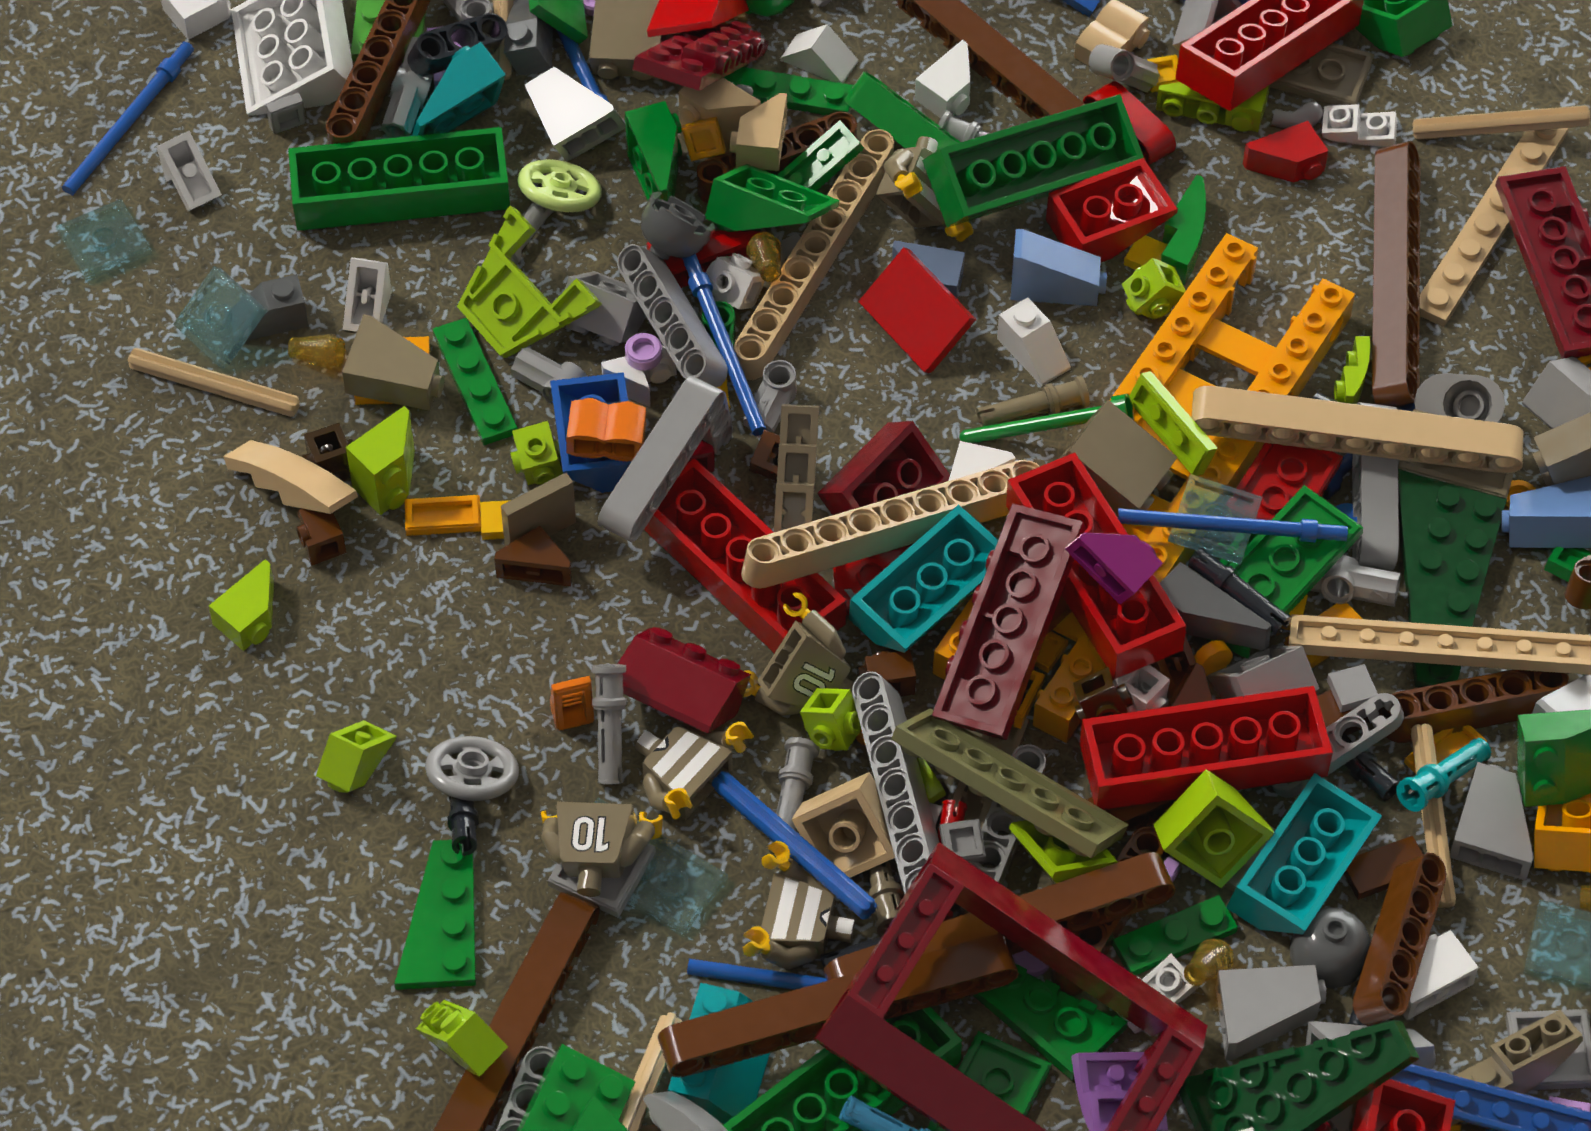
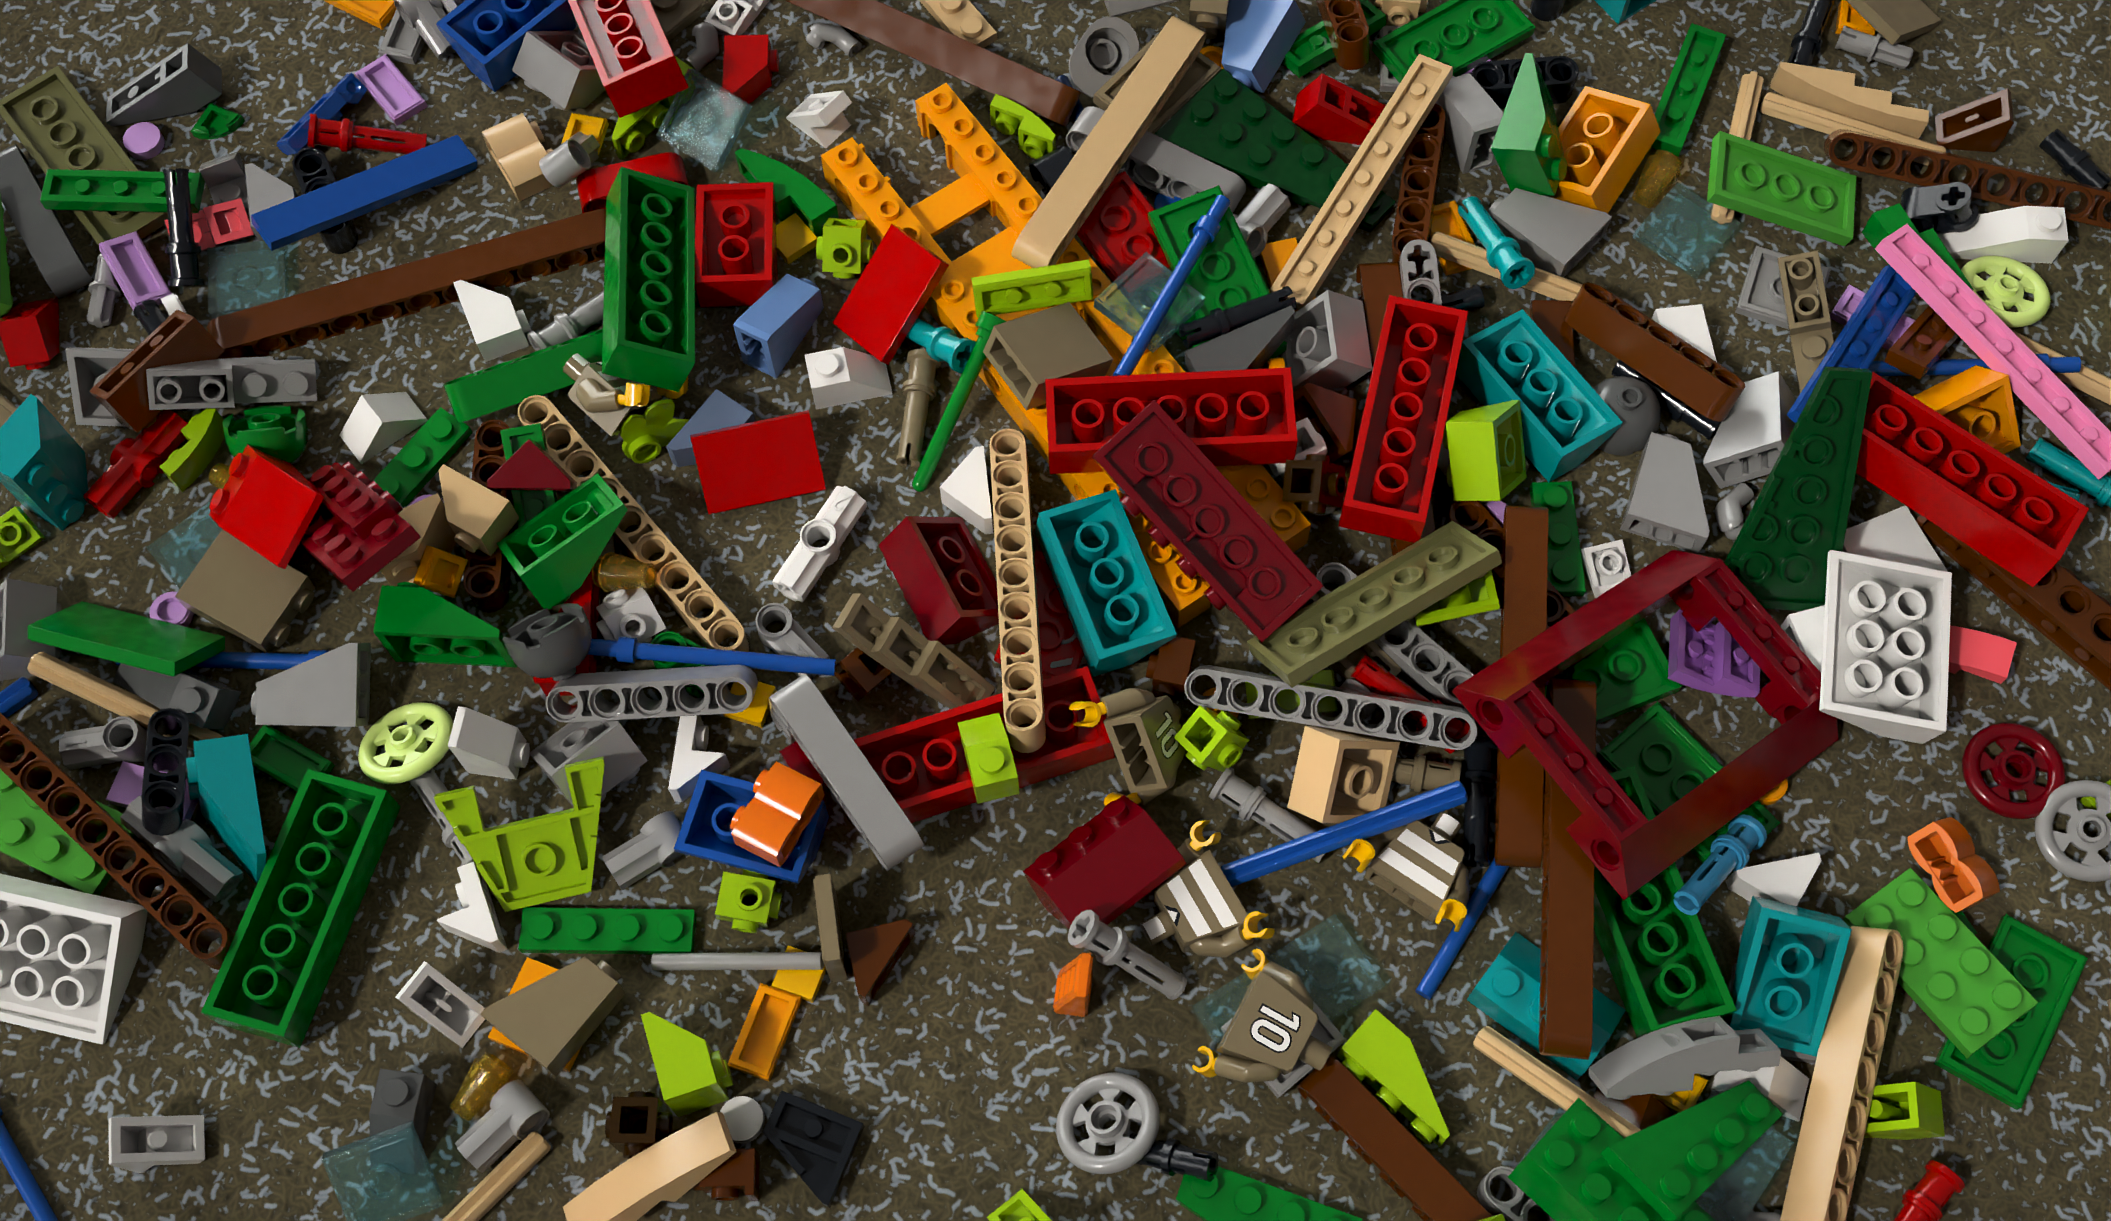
camera: 65 degrees left, 10 degrees up
(286, 113) = (133, 998): light grey tile -> none
(298, 377) = (512, 1117): none -> light grey piece
(367, 527) = (743, 1118): none -> white tile
(369, 579) = (813, 1142): none -> black wing
(445, 292) = (478, 918): none -> white slope
(483, 461) = (738, 961): none -> light grey bar
(514, 116) = (285, 758): none -> green tile
(580, 232) = (487, 745): none -> white slope
(612, 956) = (1390, 1065): none -> lime slope
(643, 351) = (680, 740): lavender tile -> none
(718, 553) = (989, 758): none -> lime slope
(818, 155) = (531, 470): none -> dark red slope
(853, 382) = (807, 562): none -> white piece
(903, 224) = (649, 432): none -> lime plate
(964, 839) = (1410, 675): light grey tile -> none
(1095, 388) = (942, 344): none -> teal pin
(1115, 561) = (1214, 390): magenta slope -> none
(1120, 335) = (890, 294): none -> red tile
(1208, 960) = (1606, 519): clear yellow cone -> none
(1219, 143) = (704, 121): none -> clear light blue tile
(1276, 229) = (822, 116): none -> white slope
(1351, 687) = (1375, 273): light grey tile -> none
(1363, 194) = (835, 34): none -> light grey arm
(1517, 601) = (1335, 111): none -> red slope

